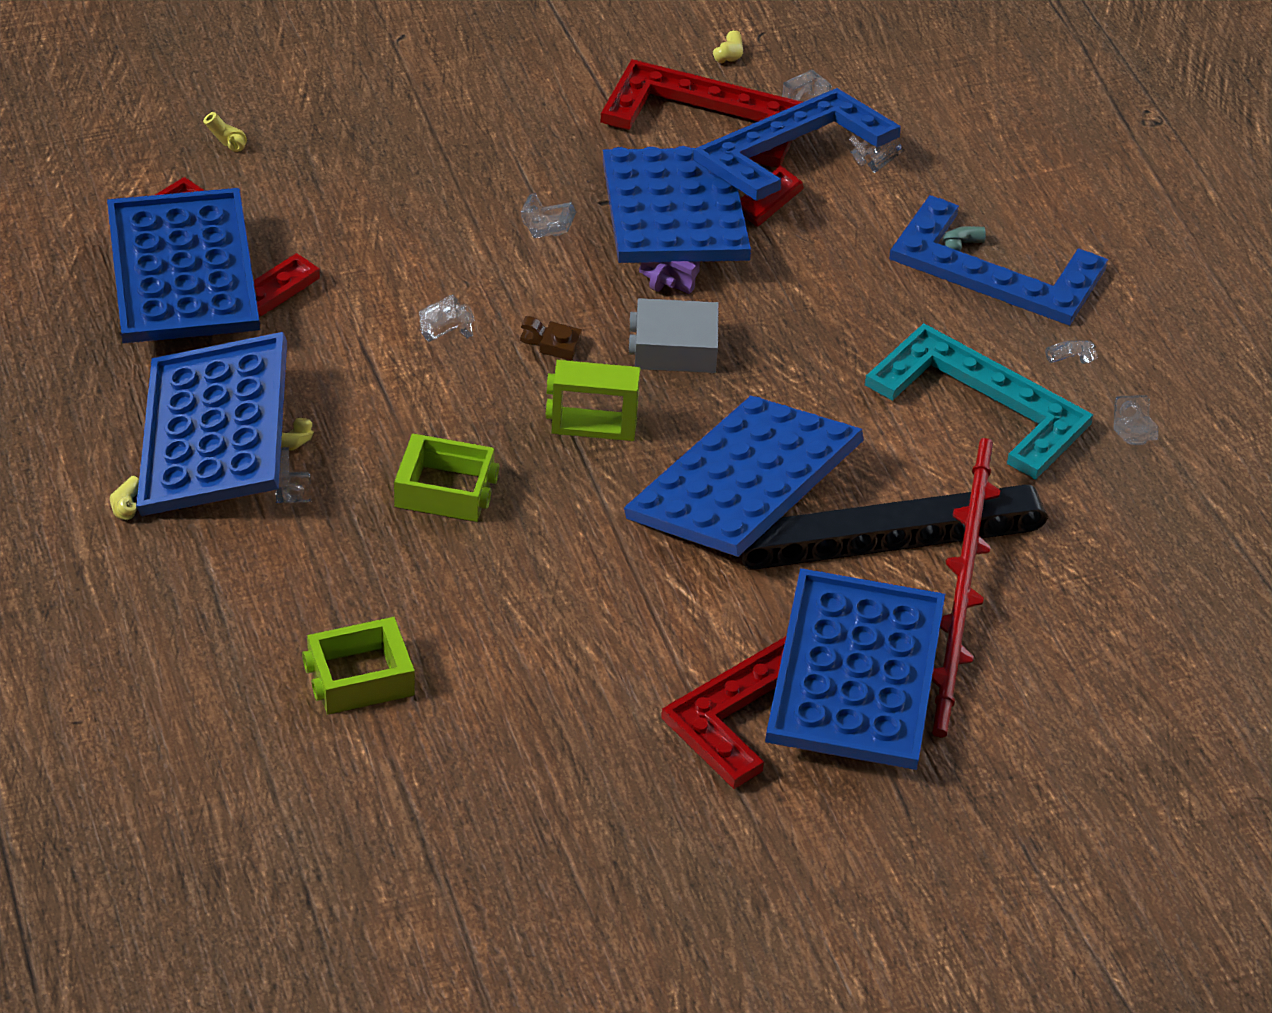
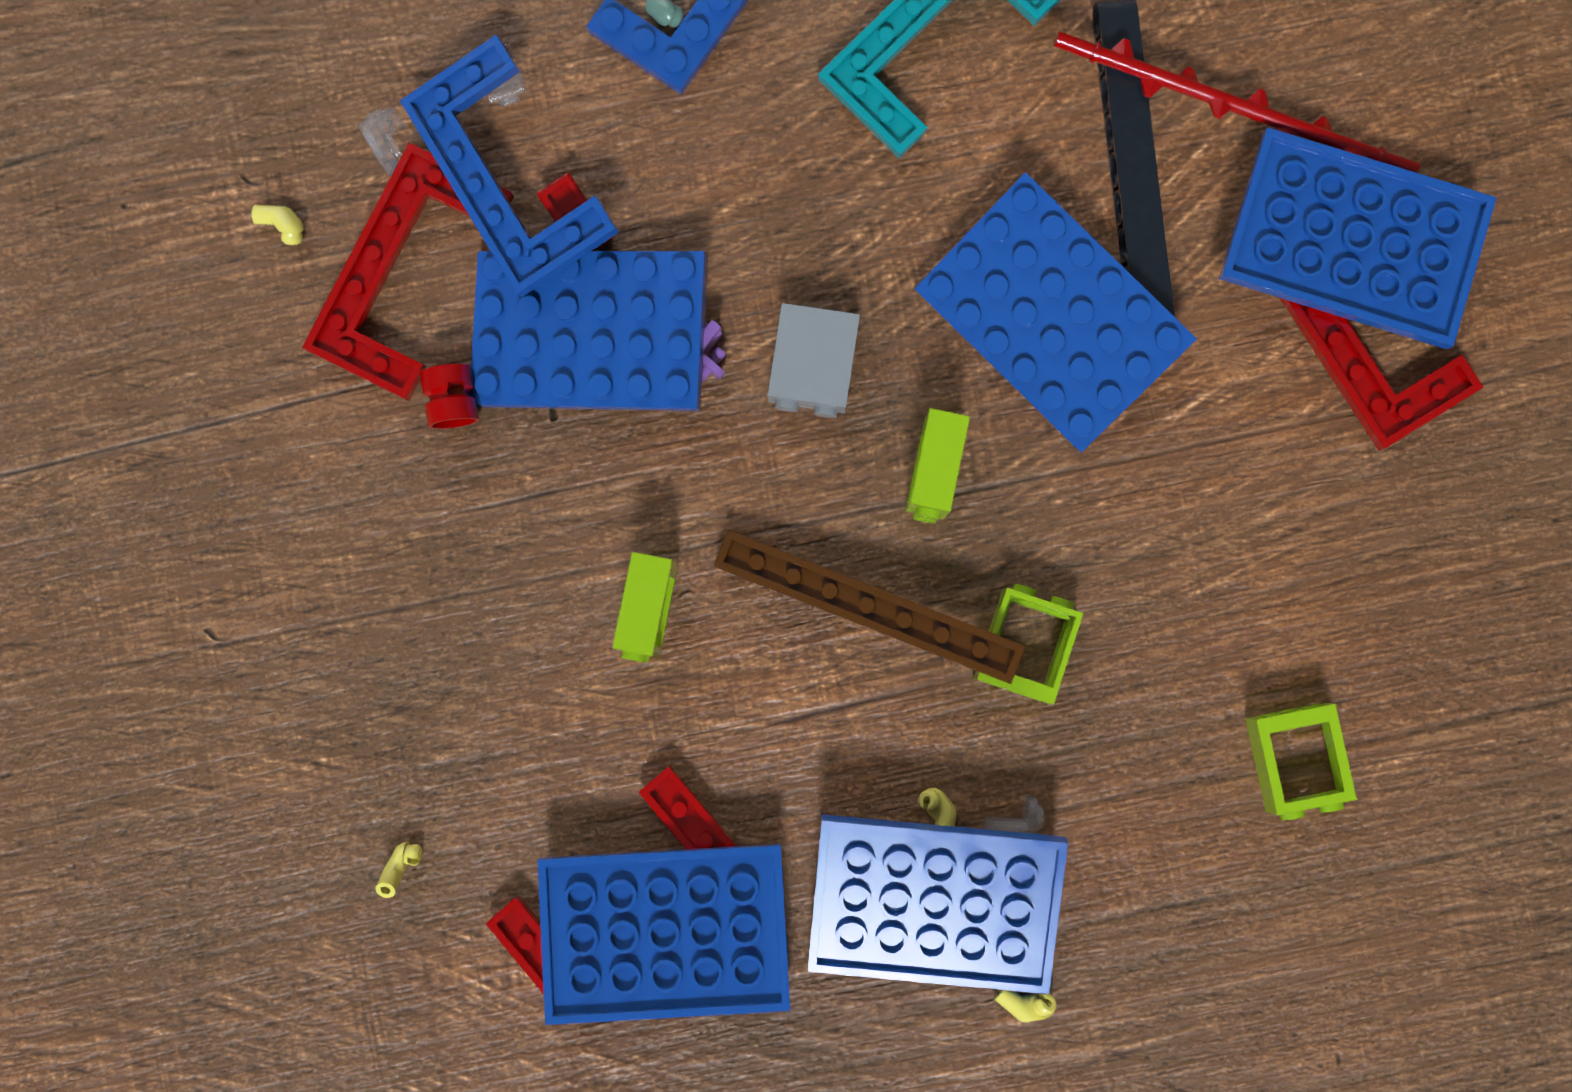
camera: 70 degrees left, 40 degrees up
(444, 317) = (762, 622): clear bracket -> none
(450, 219) = (645, 607): none -> lime window
(465, 369) = (870, 607): none -> reddish brown plate
(547, 220) = (594, 485): clear bracket -> none
(554, 340) = (800, 497): reddish brown plate -> none
(596, 132) = (457, 407): none -> red wheel

